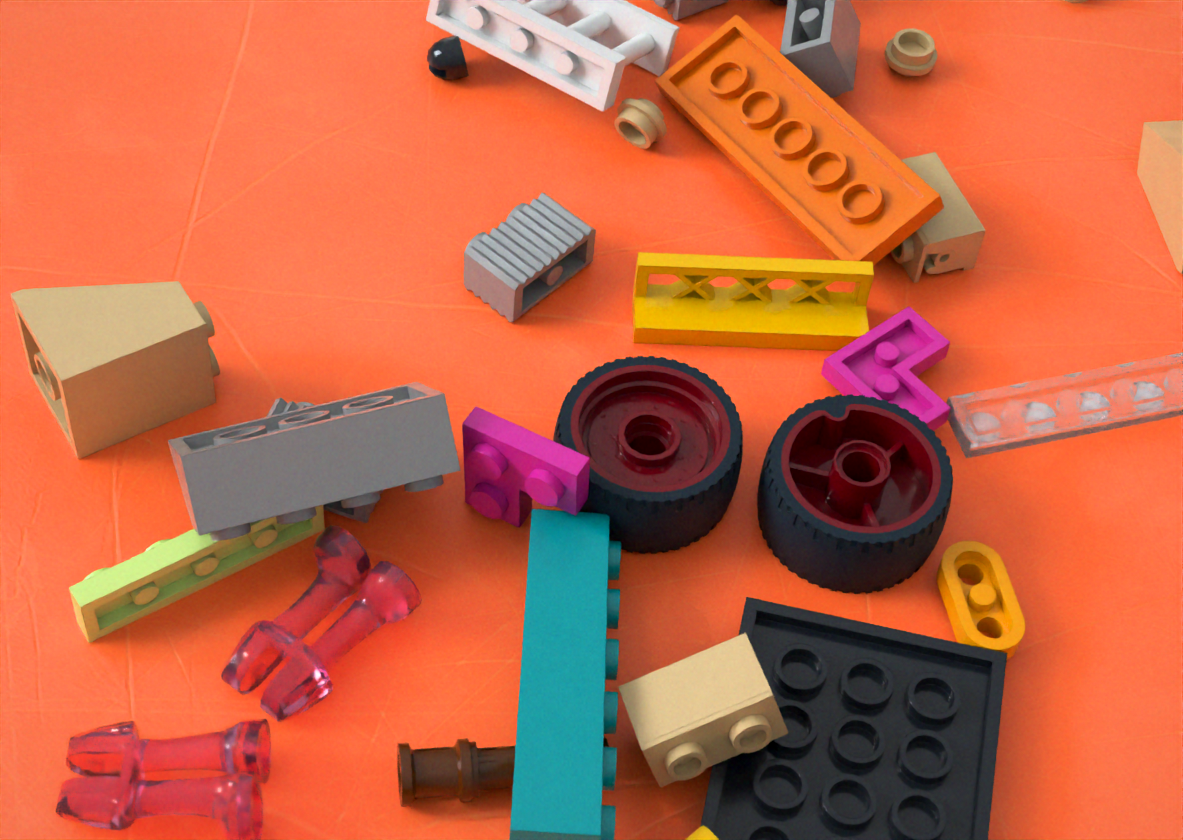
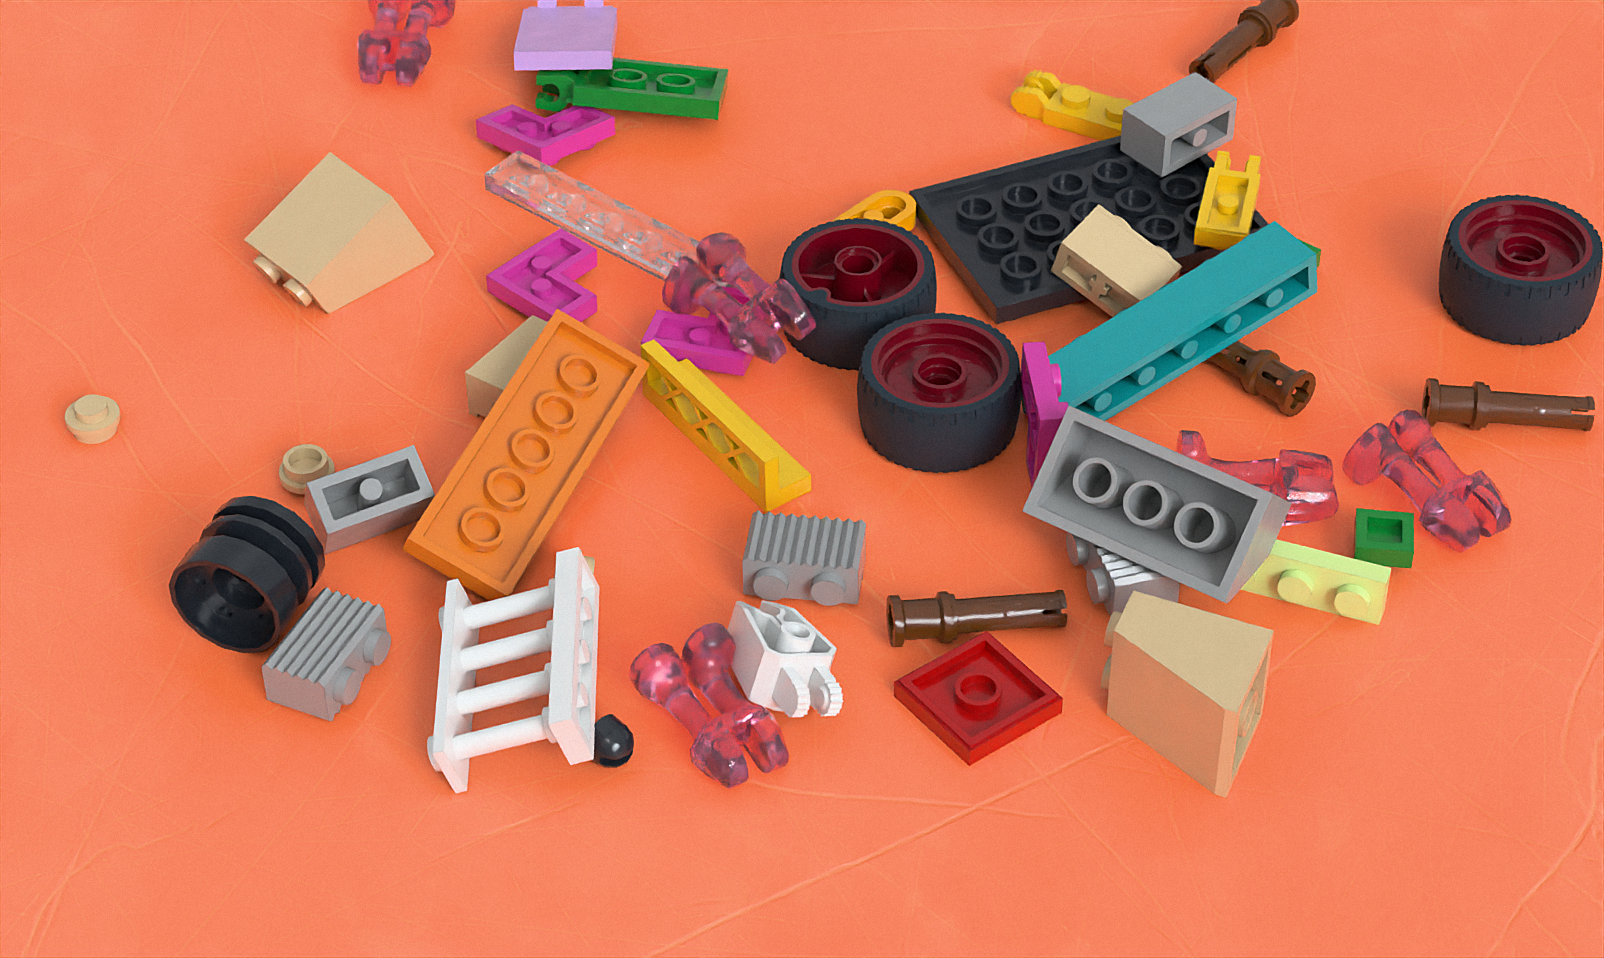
camera: 120 degrees left, 10 degrees down
(149, 684) = (1384, 537): none -> green plate
(285, 286) = (978, 697): none -> red tile
(377, 113) = (706, 665): none -> clear pink piece
(379, 308) = (947, 616): none -> reddish brown pin
(420, 164) = (783, 660): none -> white hinge
(918, 359) = (750, 325): none -> clear pink piece
(1062, 293) = (545, 277): none -> dark pink plate

